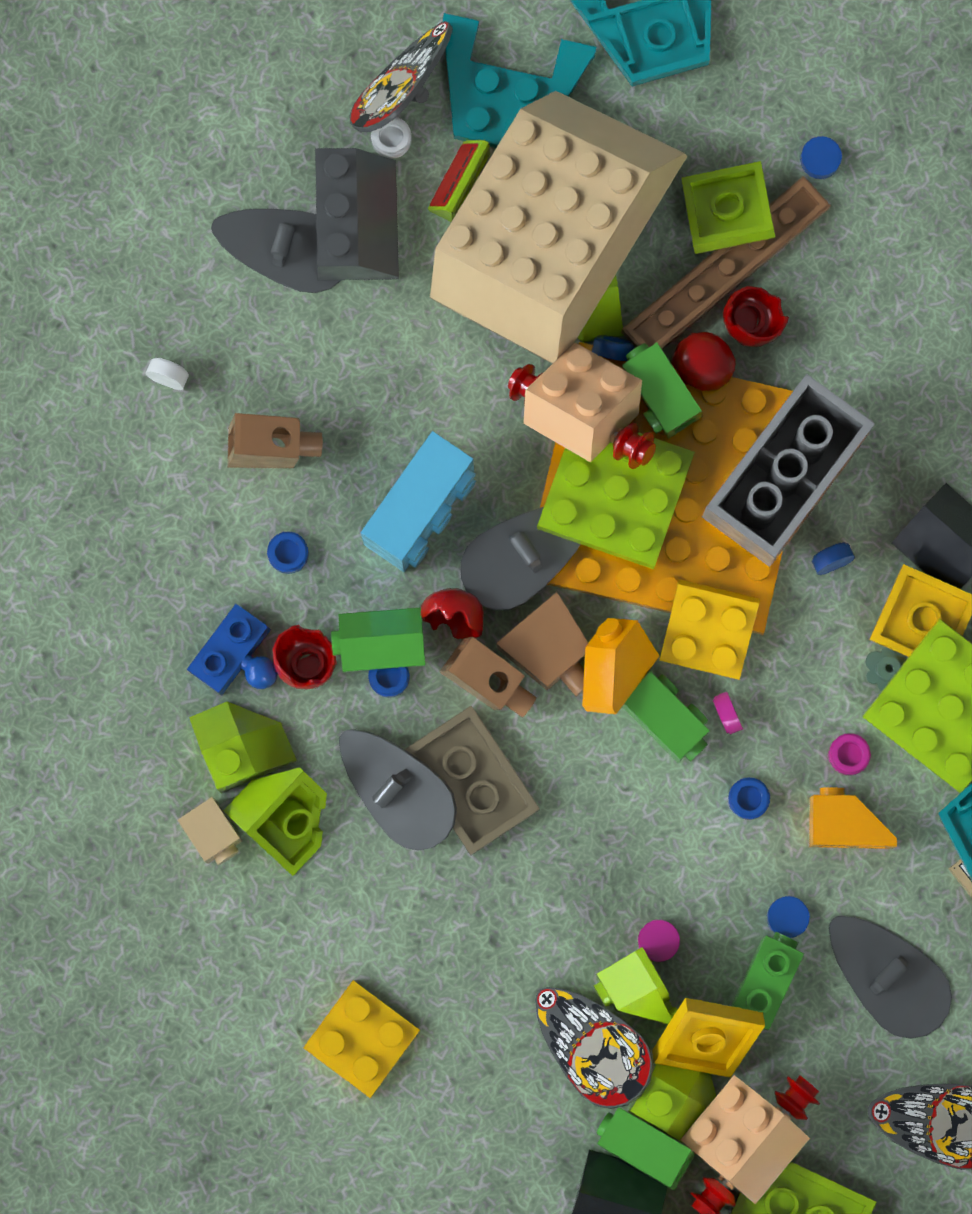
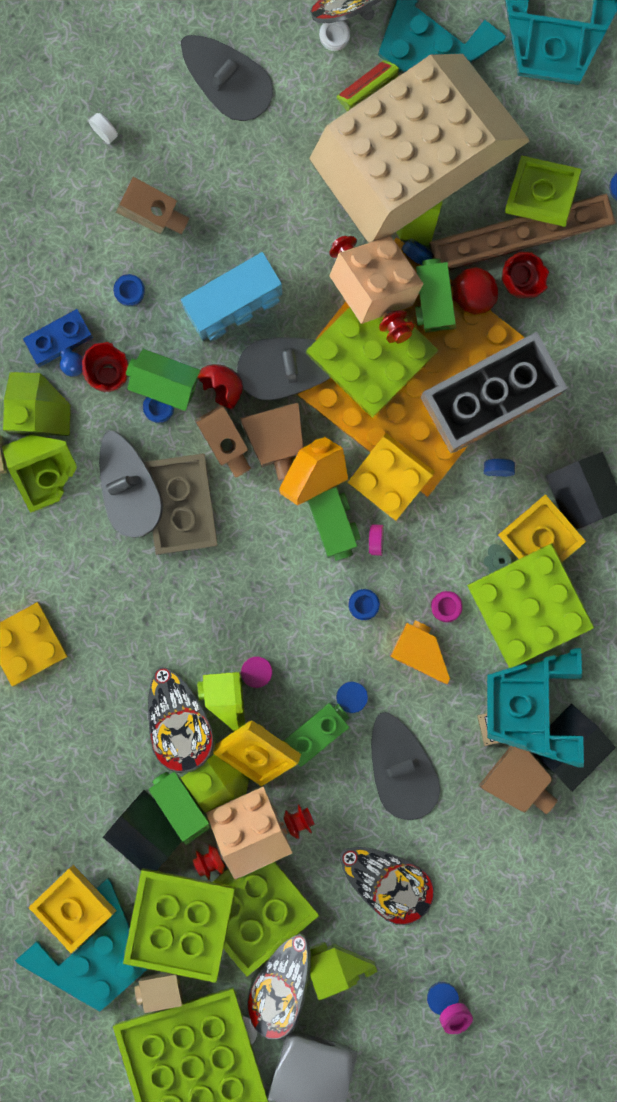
camera: 20 degrees right, 5 degrees up
(356, 215) = (283, 77): dark grey slope -> none

